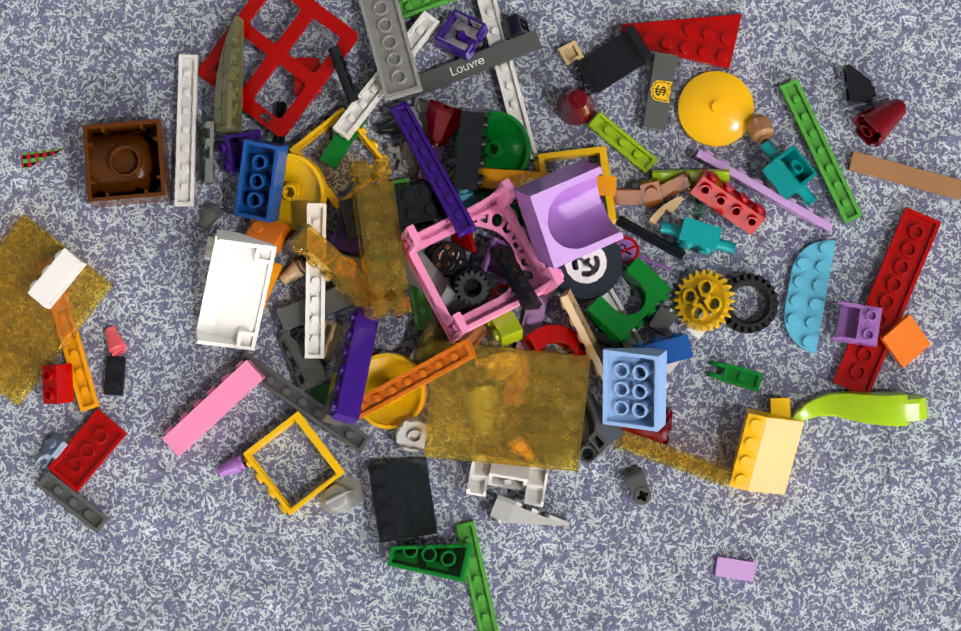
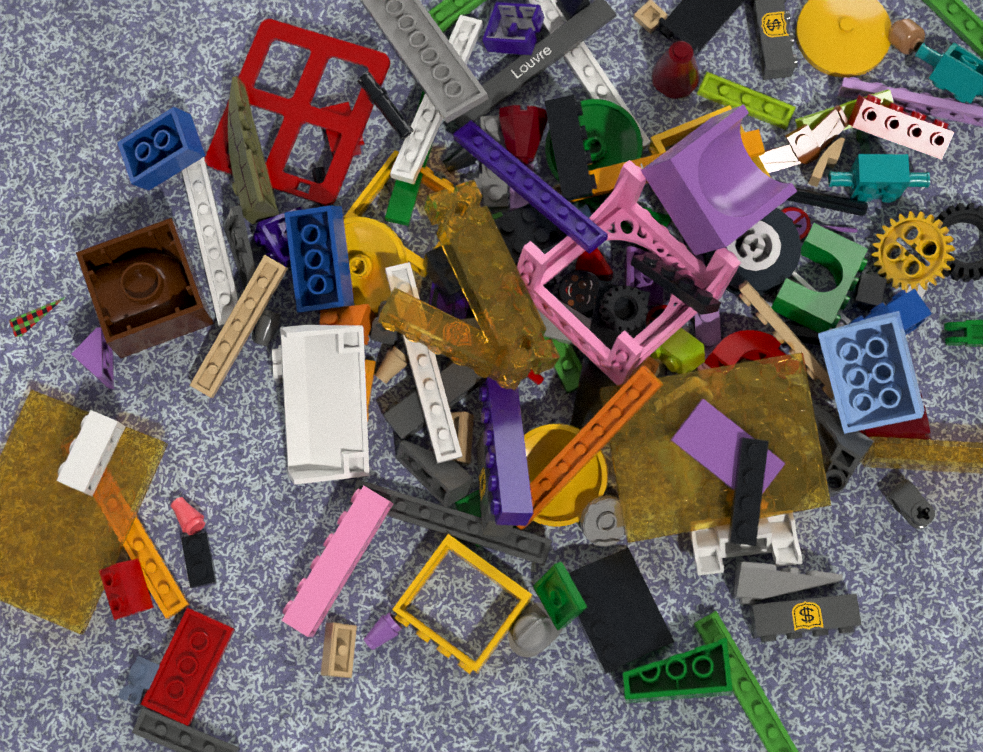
camera: 10 degrees left, 10 degrees down
(78, 207) = (97, 357): none -> medium lavender slope
(166, 56) = (161, 148): none -> blue brick
(189, 211) = (238, 326): none -> tan plate
(197, 469) = (338, 650): none -> tan slope
(363, 479) = (559, 596): none -> green tile
(512, 413) = (715, 444): none -> medium lavender tile
(517, 446) = (748, 491): none -> black plate
(534, 543) = (805, 616): none -> dark grey brick

